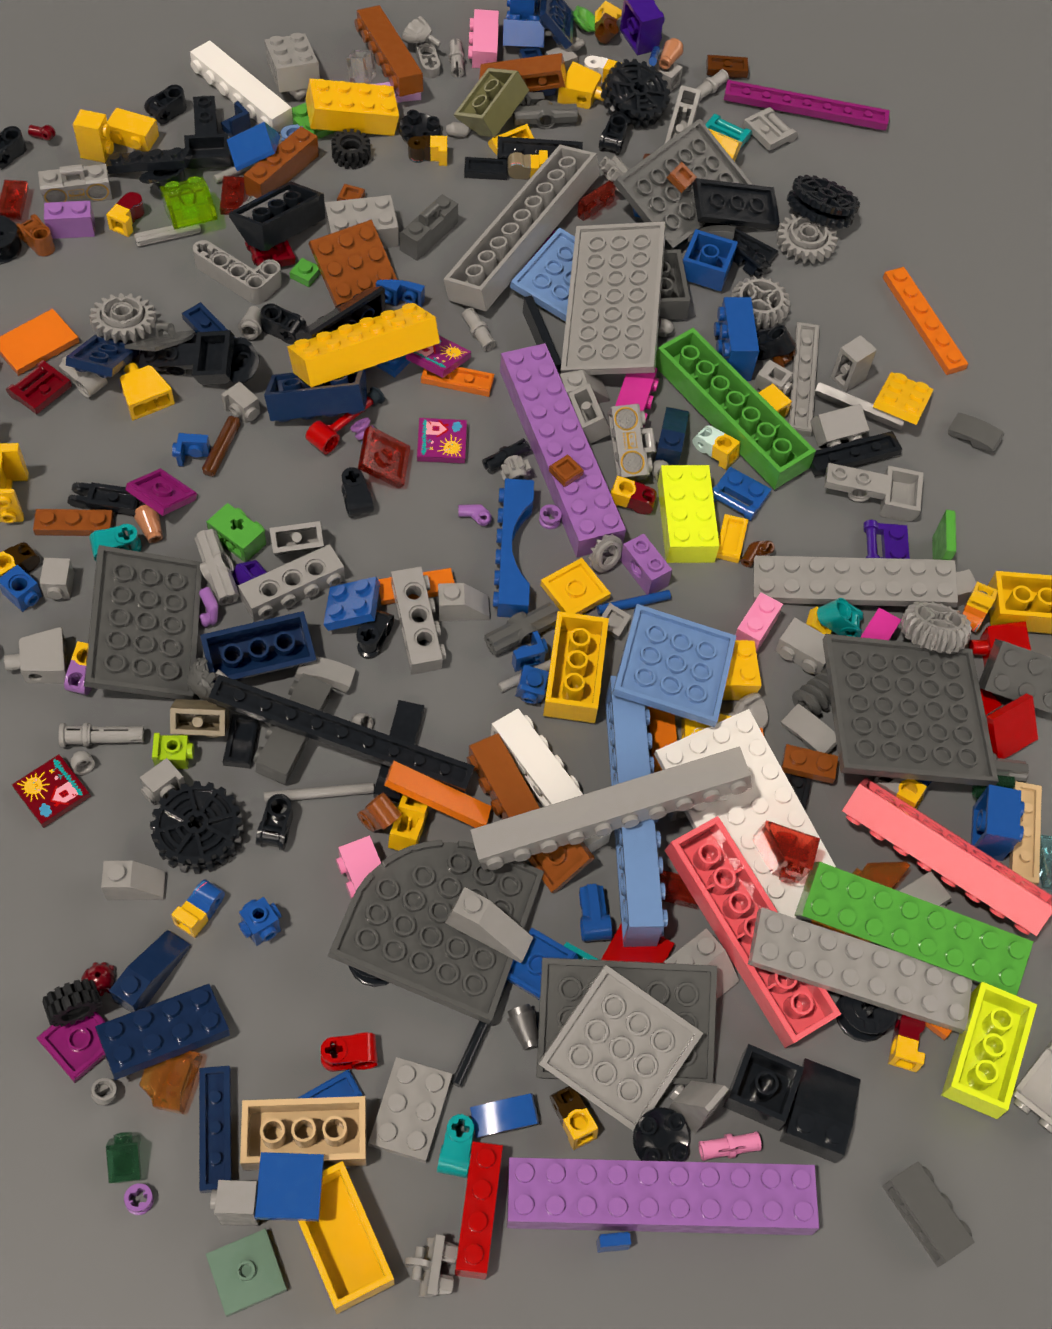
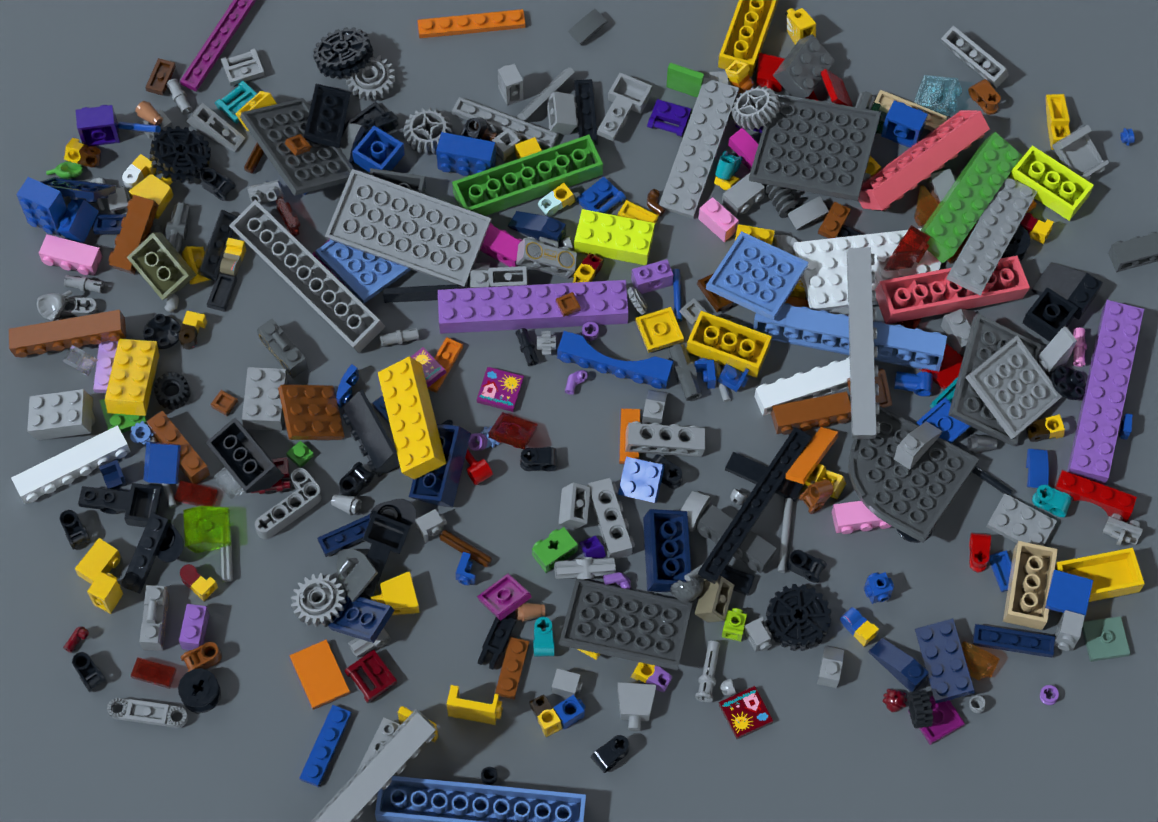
camera: 70 degrees left, 5 degrees up
(123, 1157) = (1022, 697): clear green bracket -> none
(903, 397) = (548, 62): yellow plate -> none

